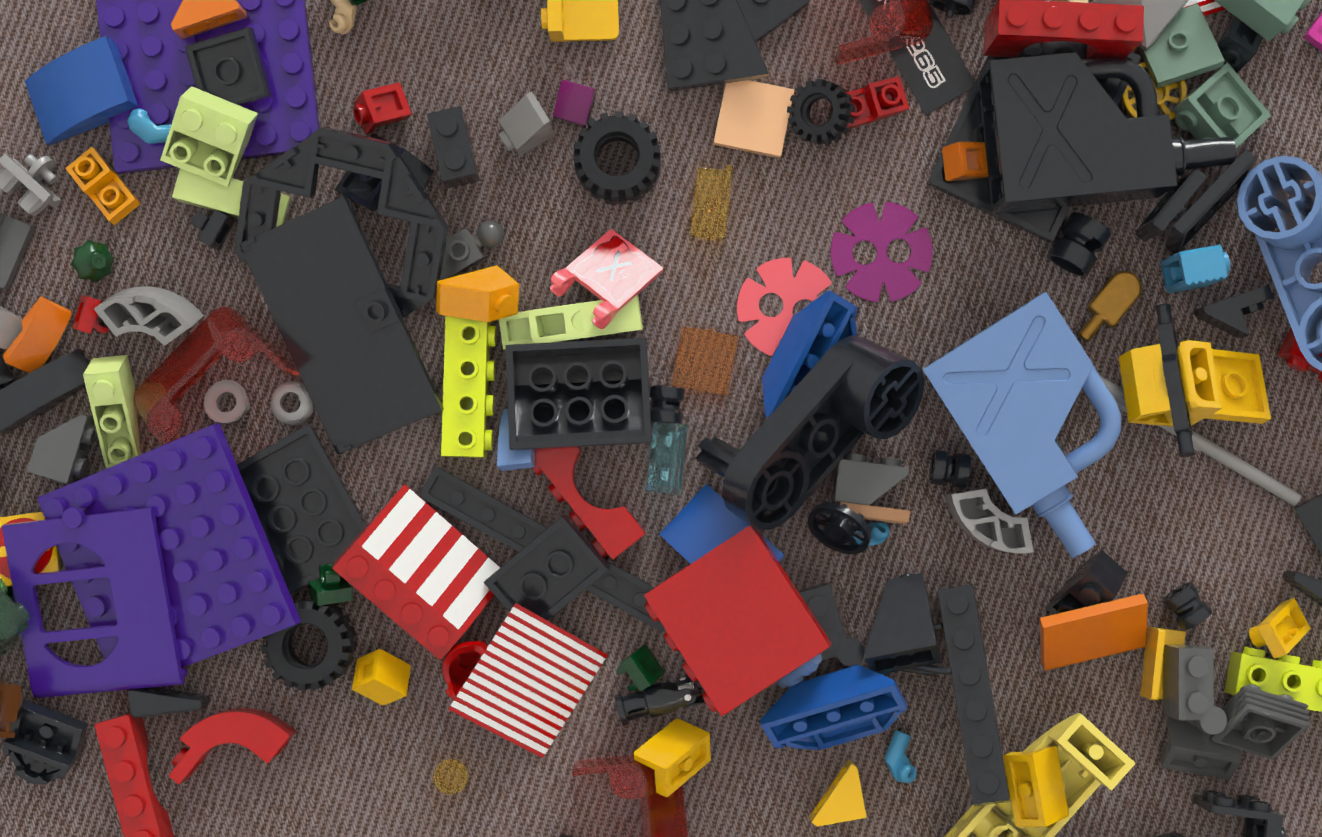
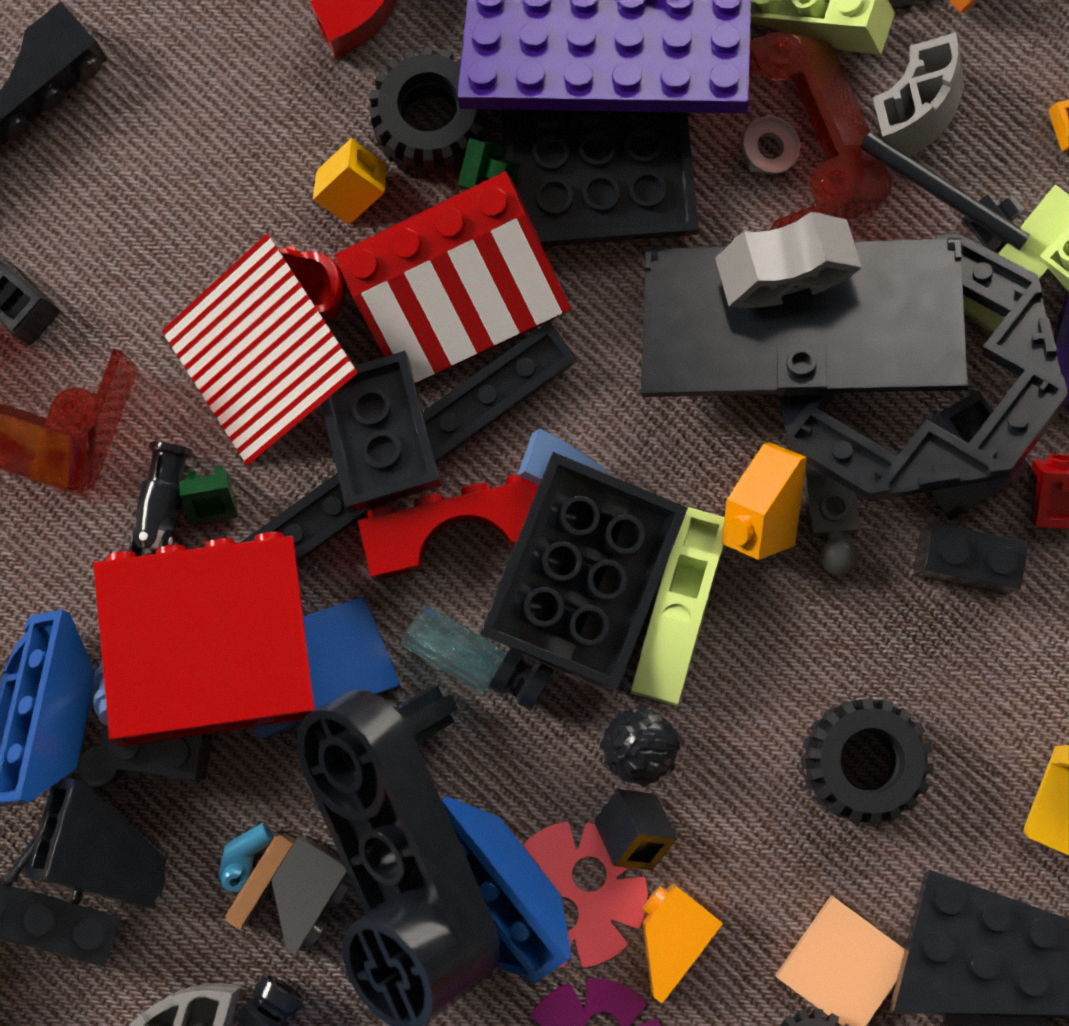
camera: 110 degrees right, 5 degrees down
(86, 316) = (948, 23): red tile -> none
(92, 261) = (1014, 63): dark green piece -> none
(209, 269) = (944, 191): none -> black bar
(298, 341) = (782, 261): none -> light grey brick
(306, 405) = (713, 223): light grey piece -> none
(450, 776) = (192, 211): clear yellow plate -> none
(467, 388) = (656, 439): neon yellow brick -> none
(525, 126) = (959, 661): light grey slope -> none
(574, 102) = (963, 739): magenta slope -> none
(611, 271) = (722, 685): flag -> none
(674, 307) = (640, 746): none -> black piece
(675, 754) = (81, 487): yellow panel -> none
(704, 360) = (555, 755): clear orange piece -> none
(711, 203) = (755, 857): clear yellow panel -> none
(729, 287) = (635, 829): none -> black panel
(785, 232) = (674, 937): none -> light orange slope
(839, 529) = (260, 827): black wheel -> none

